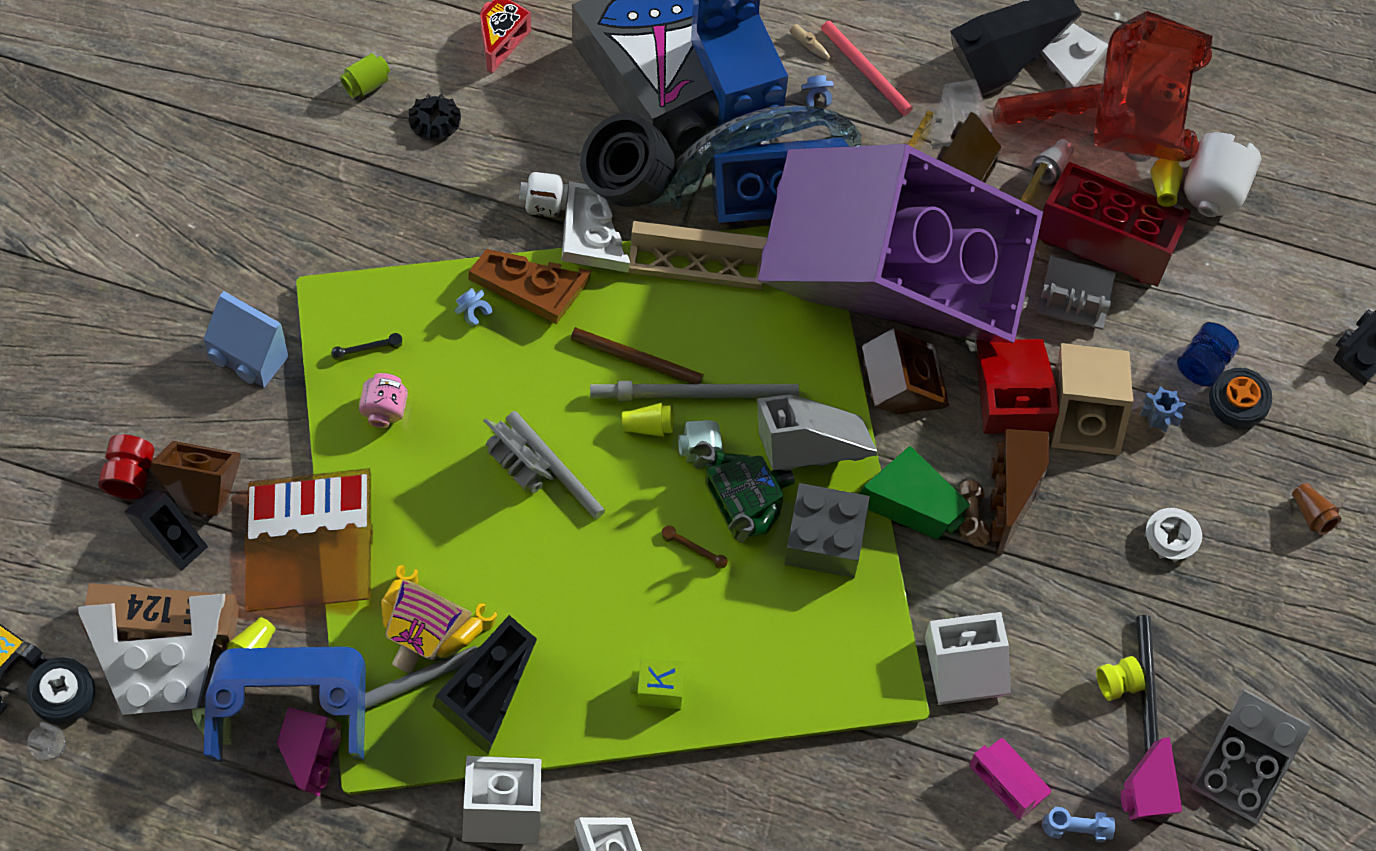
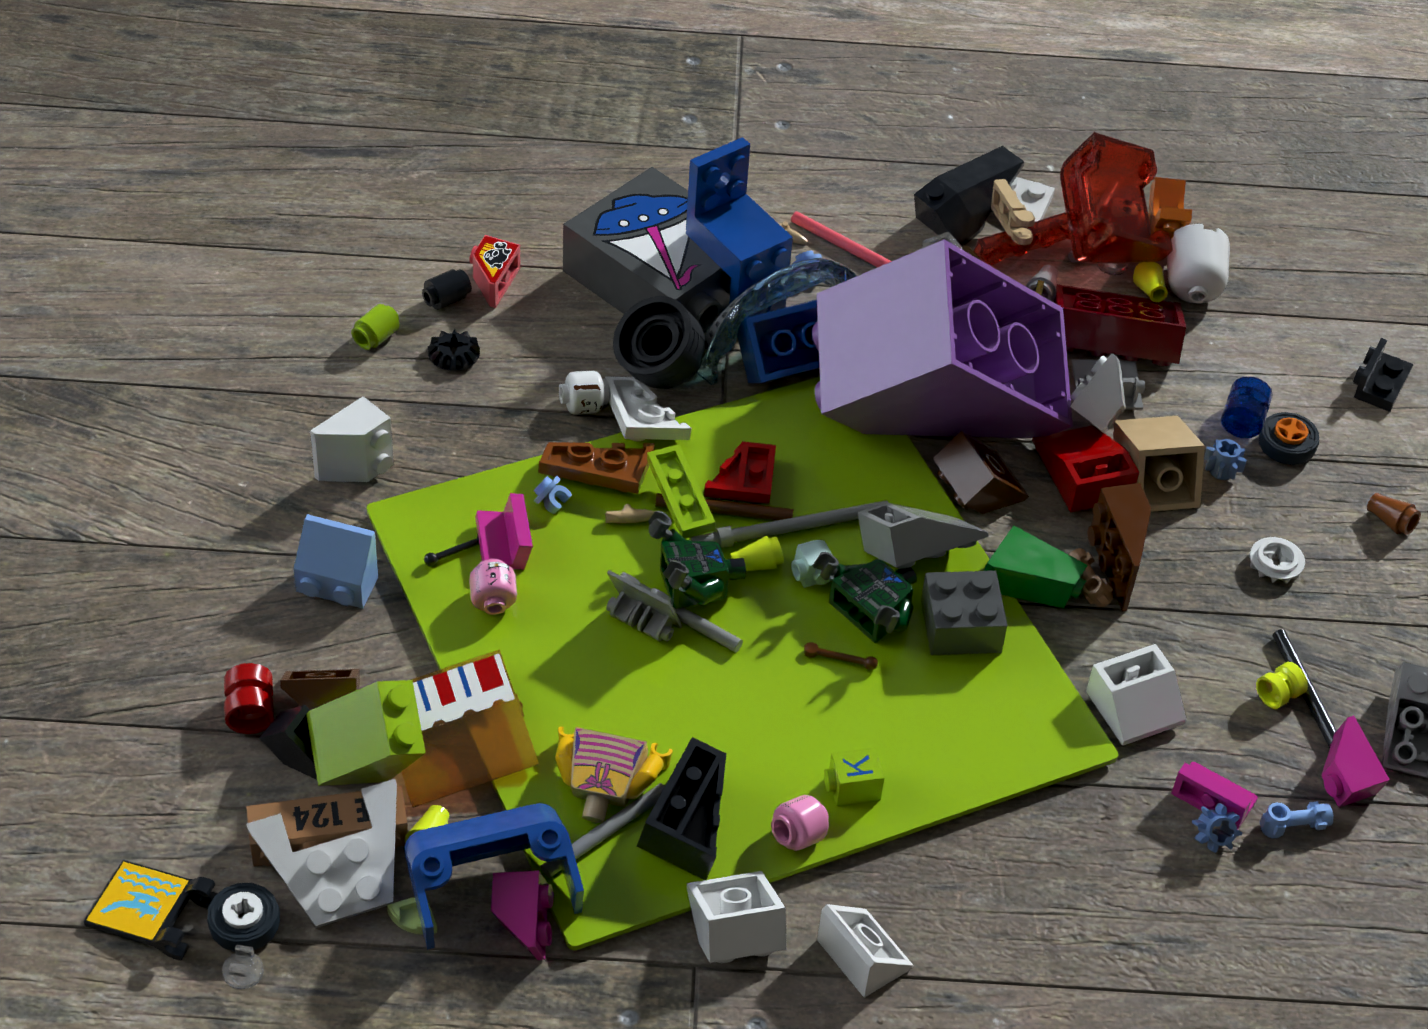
camera: 15 degrees left, 15 degrees down
(210, 538) = (366, 734): none -> lime slope
(298, 211) = (353, 444): none -> white slope
(412, 344) = (505, 533): none -> dark pink panel
(446, 45) = (446, 288): none -> black brick
(543, 345) = (628, 515): none -> tan helmet
(578, 422) = (692, 569): none -> dark green torso
(590, 720) = (800, 822): none -> bright pink head
(594, 334) = (681, 491): none -> lime plate
(669, 326) = (745, 474): none -> red wing
(694, 244) = (748, 406): tan fence -> none
(993, 818) = (1222, 836): none -> medium blue gear
(1041, 77) = (1012, 213): none -> tan hinge
(1054, 319) = (1103, 396): none -> white slope
(1215, 99) = (1167, 205): none -> orange arch

